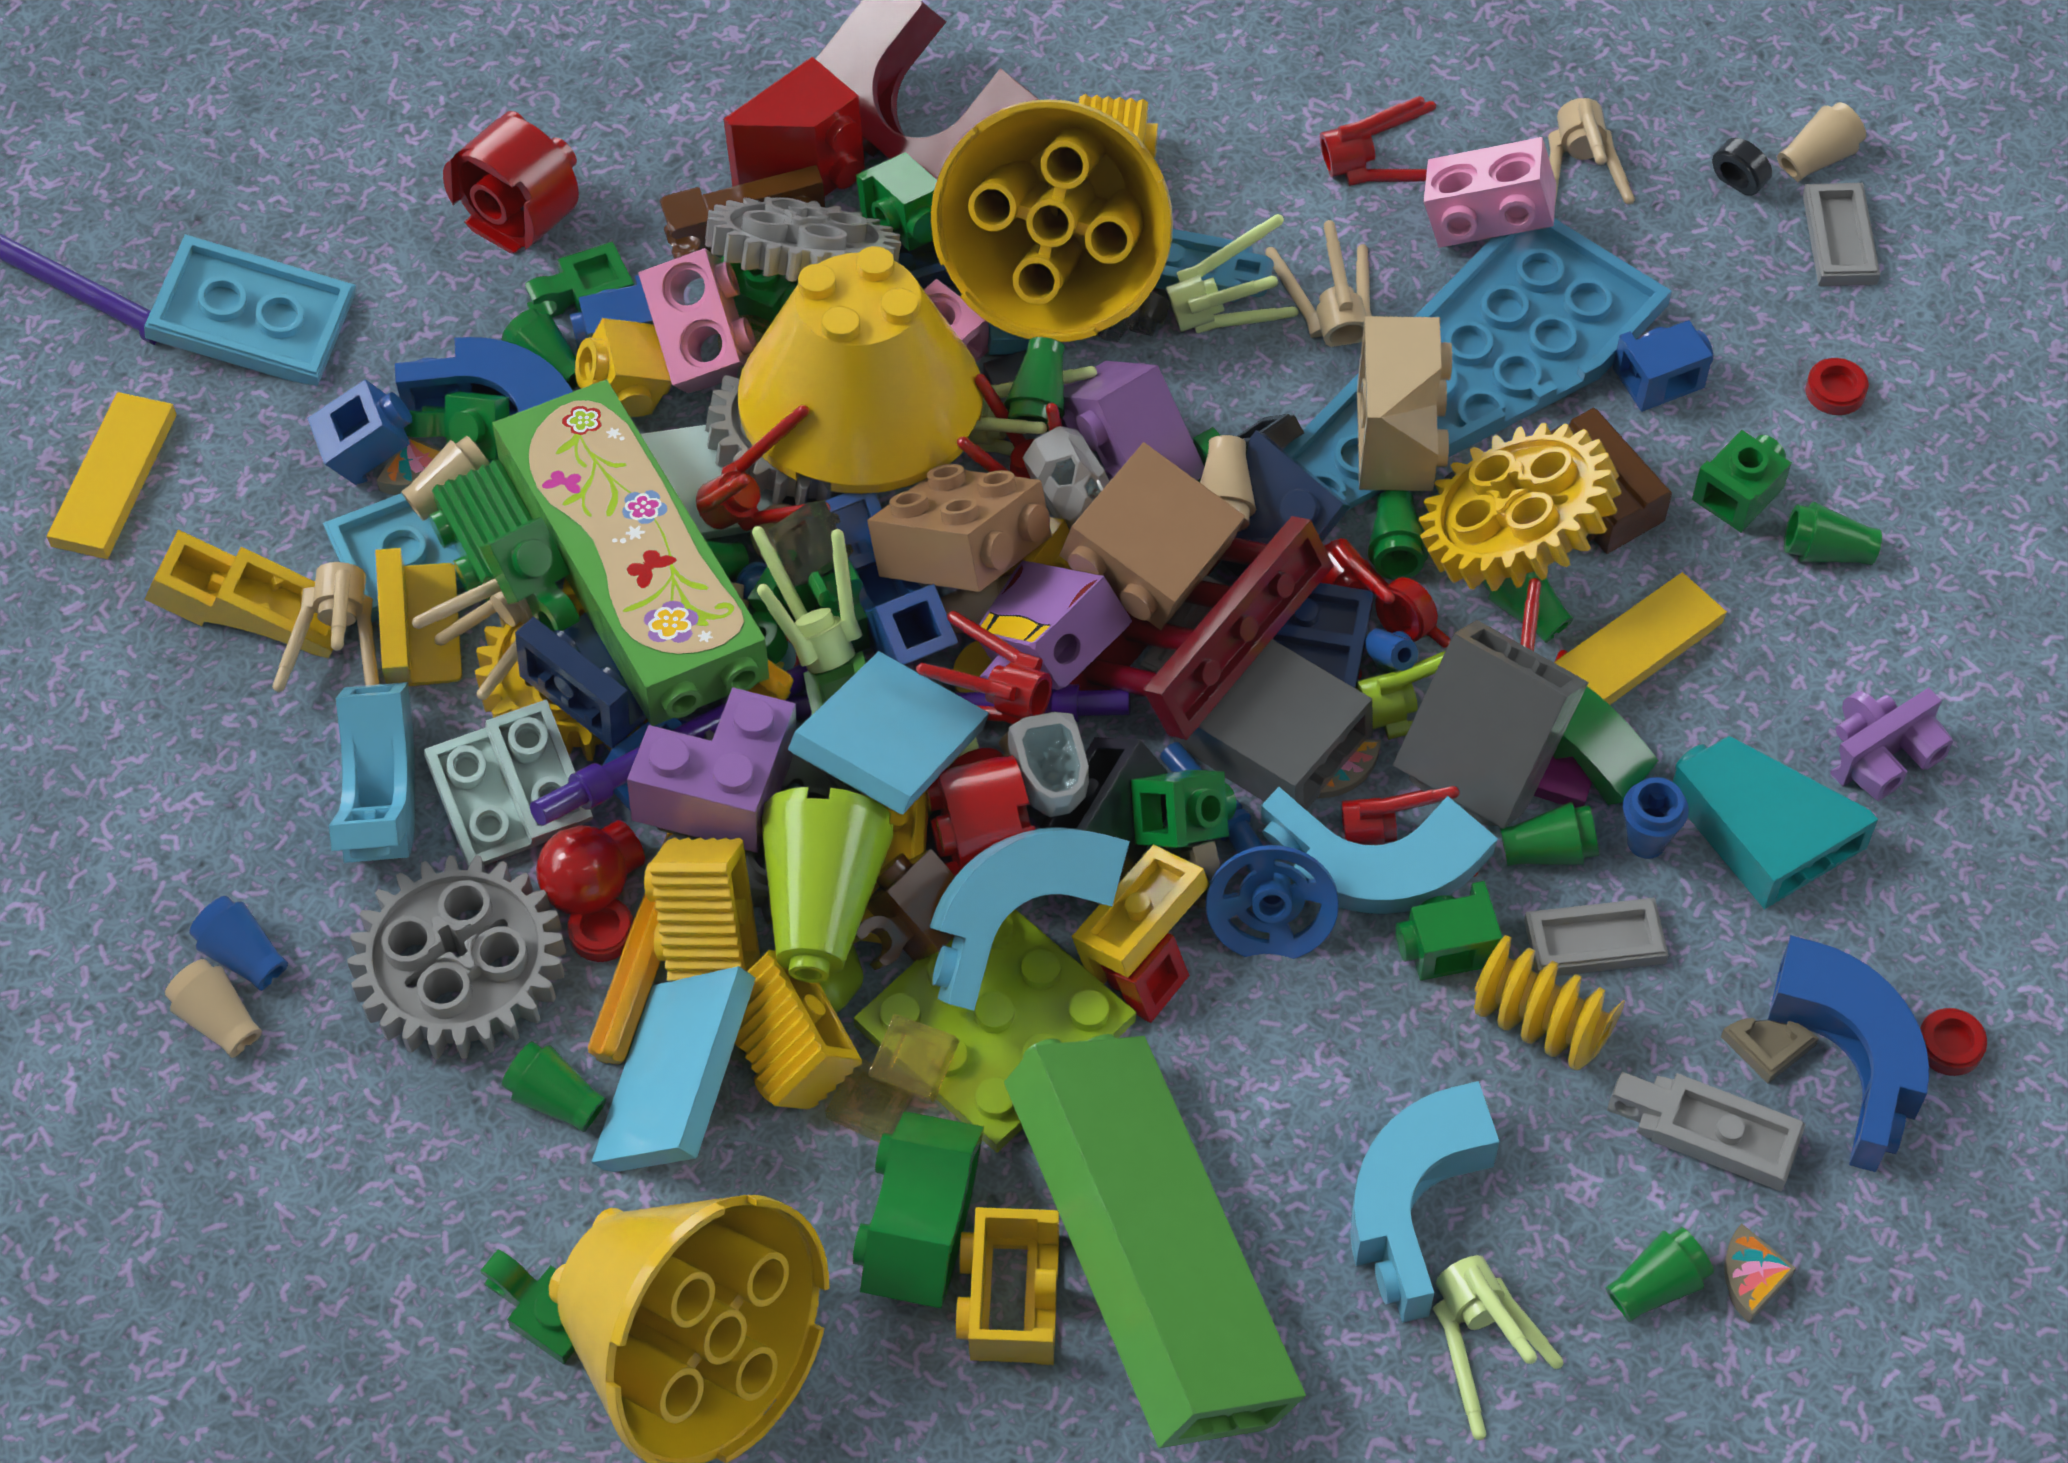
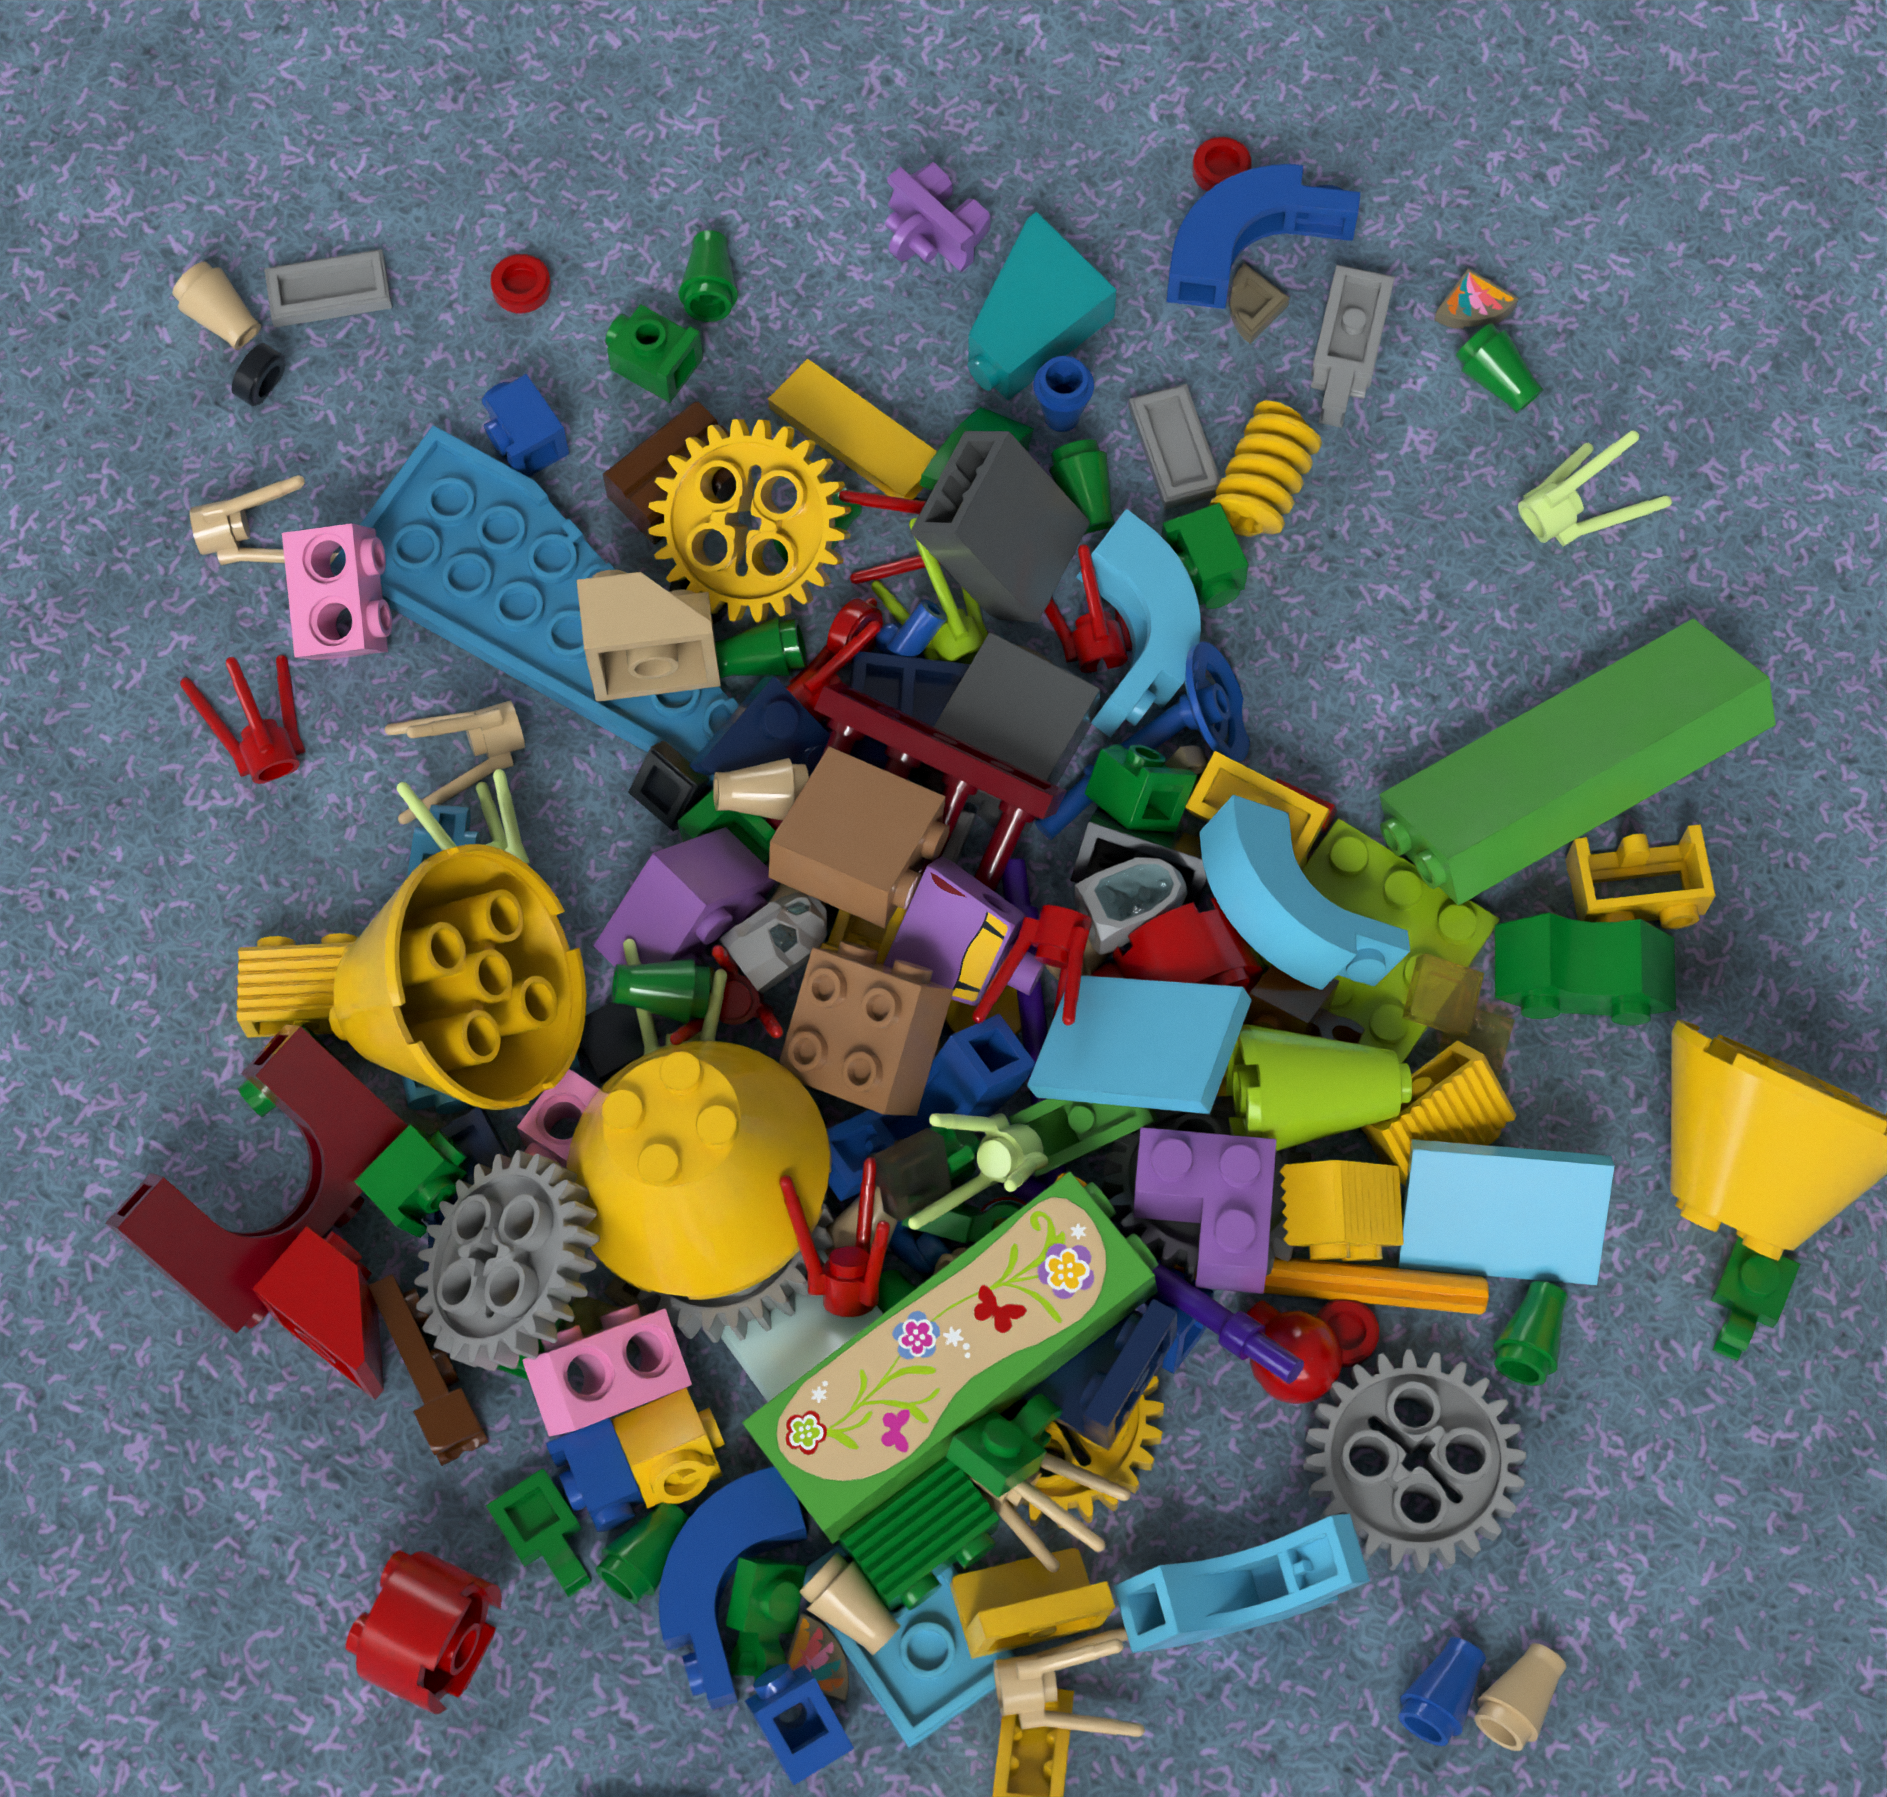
camera: 100 degrees left, 10 degrees up
(494, 777) = (1215, 1452): light aqua slope -> none
(1419, 1147) = (1462, 579): medium azure arch -> none

